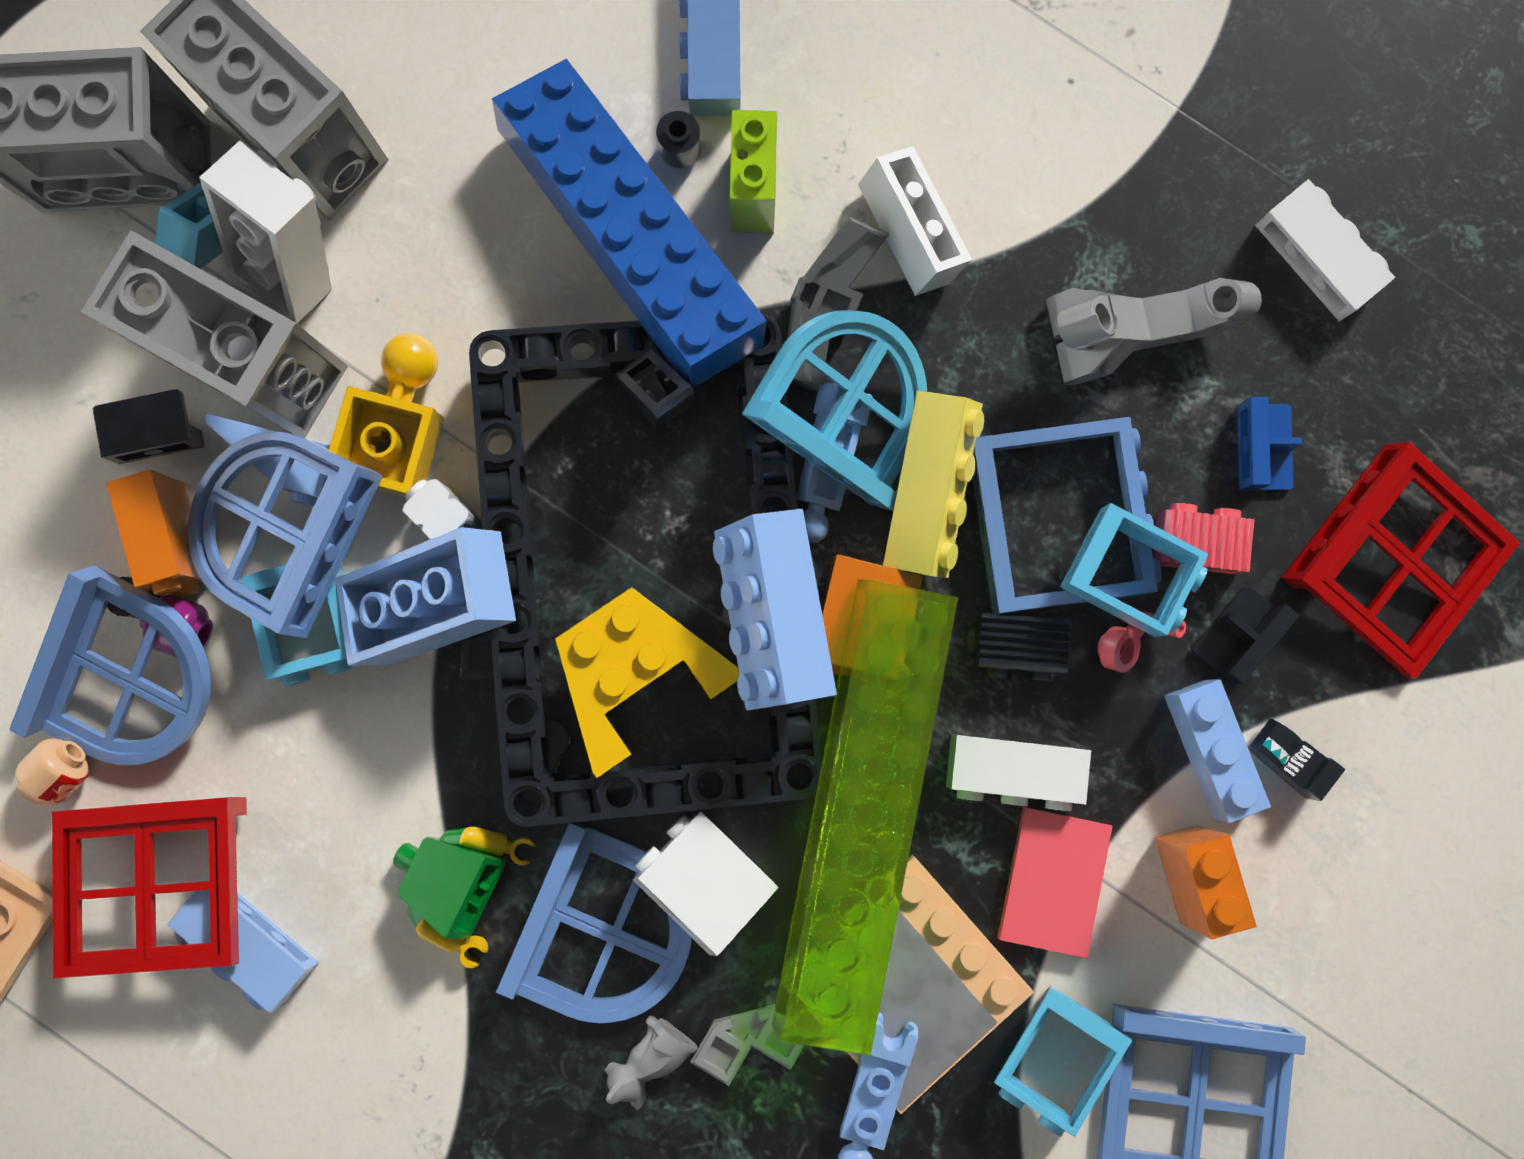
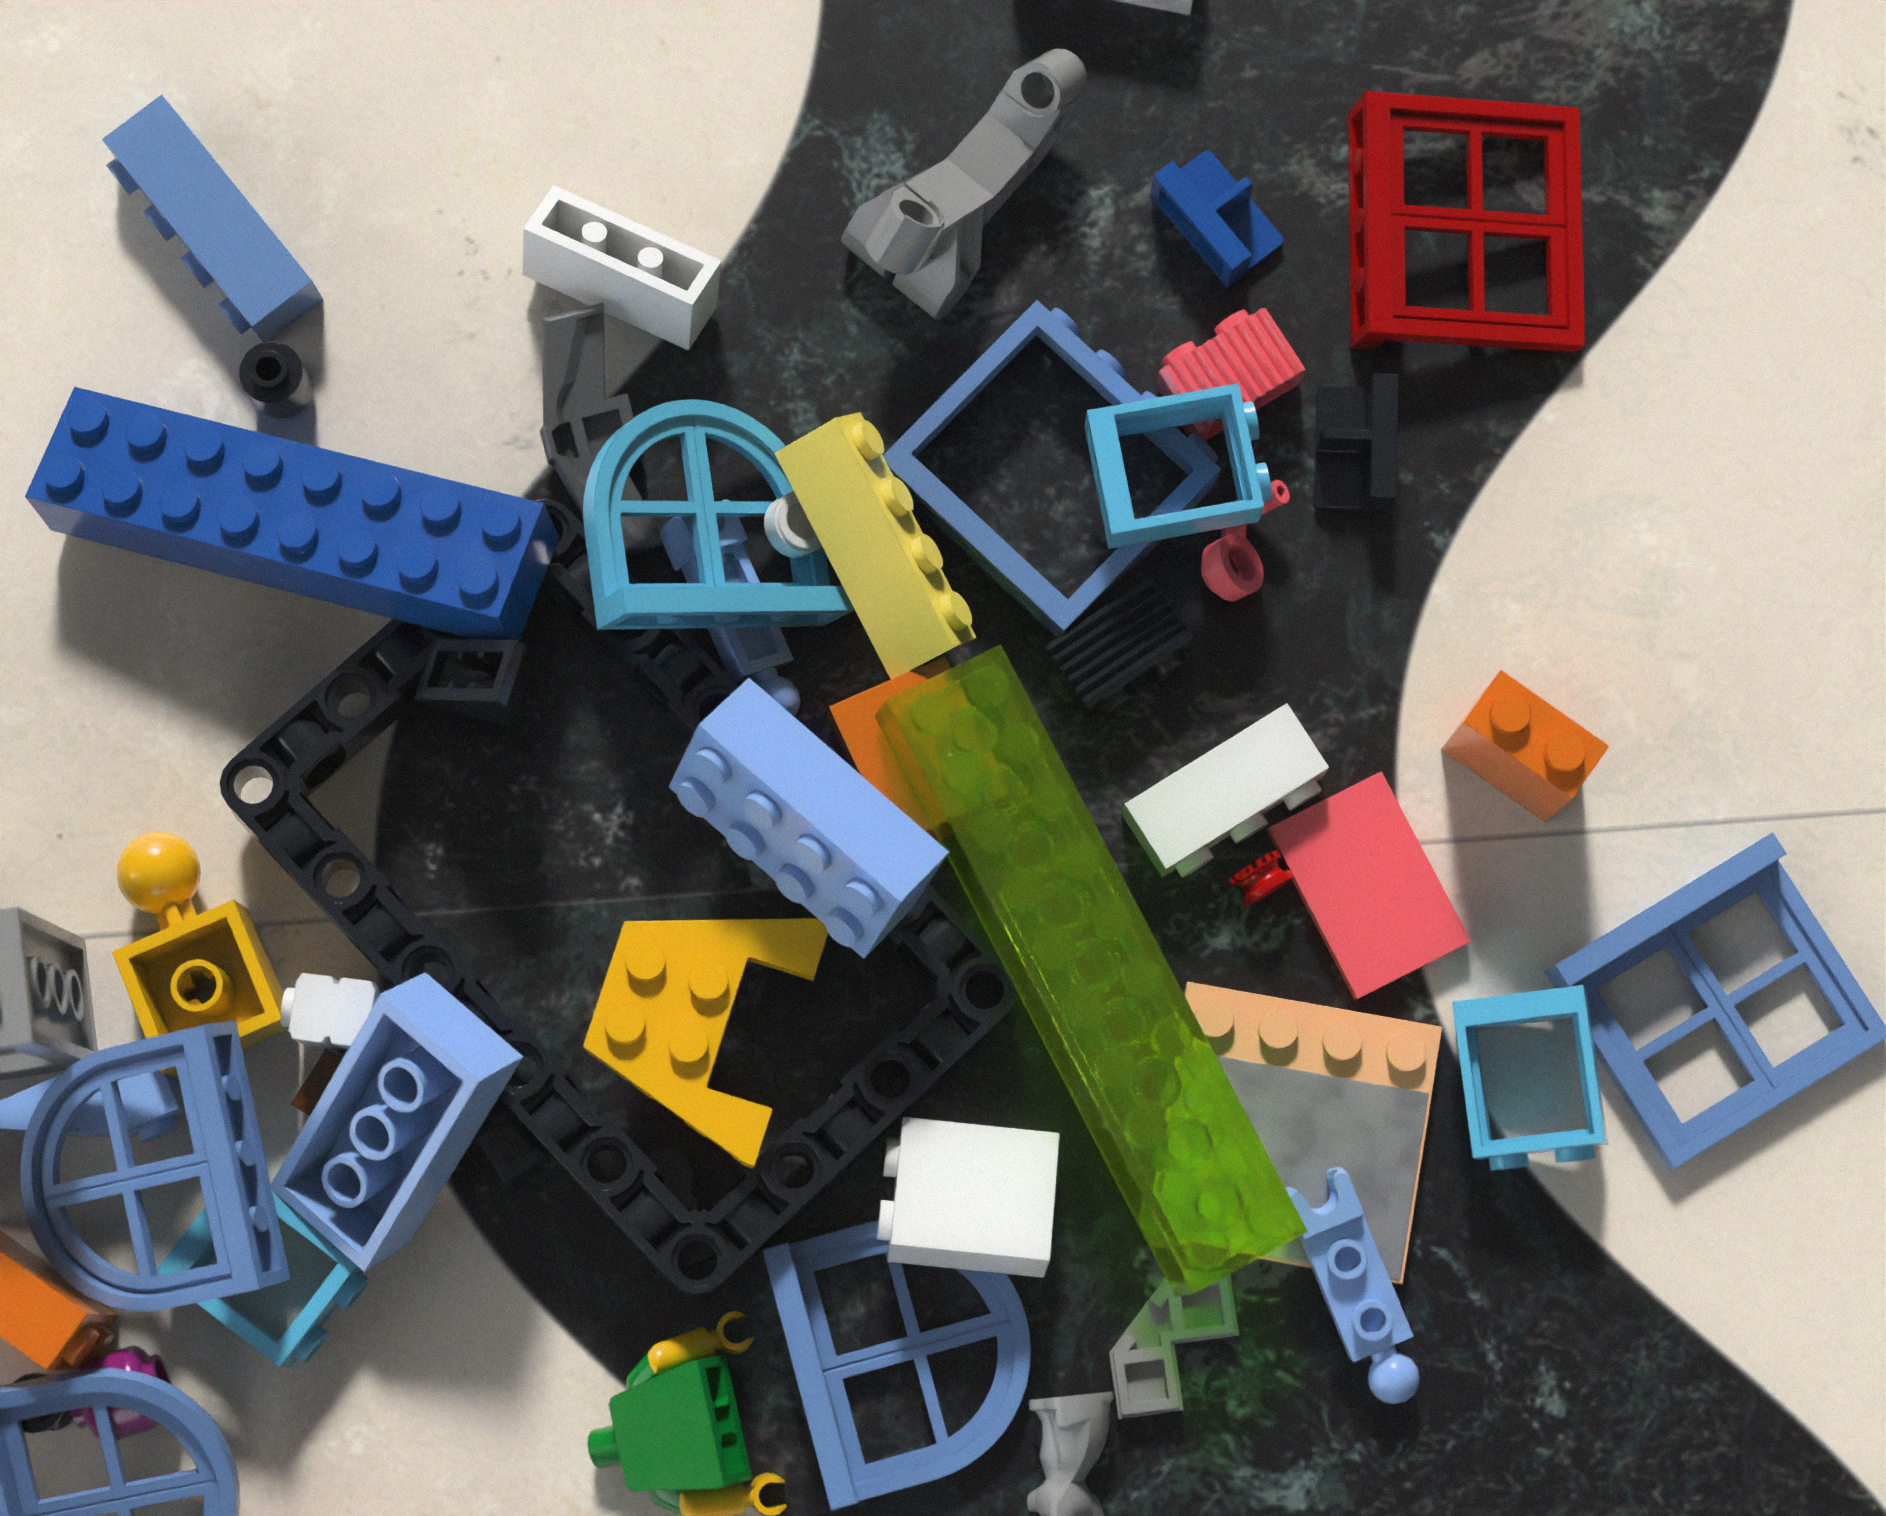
camera: 35 degrees left, 5 degrees down
(404, 542) = (317, 1082): none -> reddish brown tile
(753, 171) = (394, 351): lime window -> none
(893, 437) = (790, 528): none -> white tile
(999, 834) = (1262, 880): none -> red bush
(1217, 751) = (1428, 595): light blue brick -> none
(1295, 761) = (1523, 539): black leg -> none

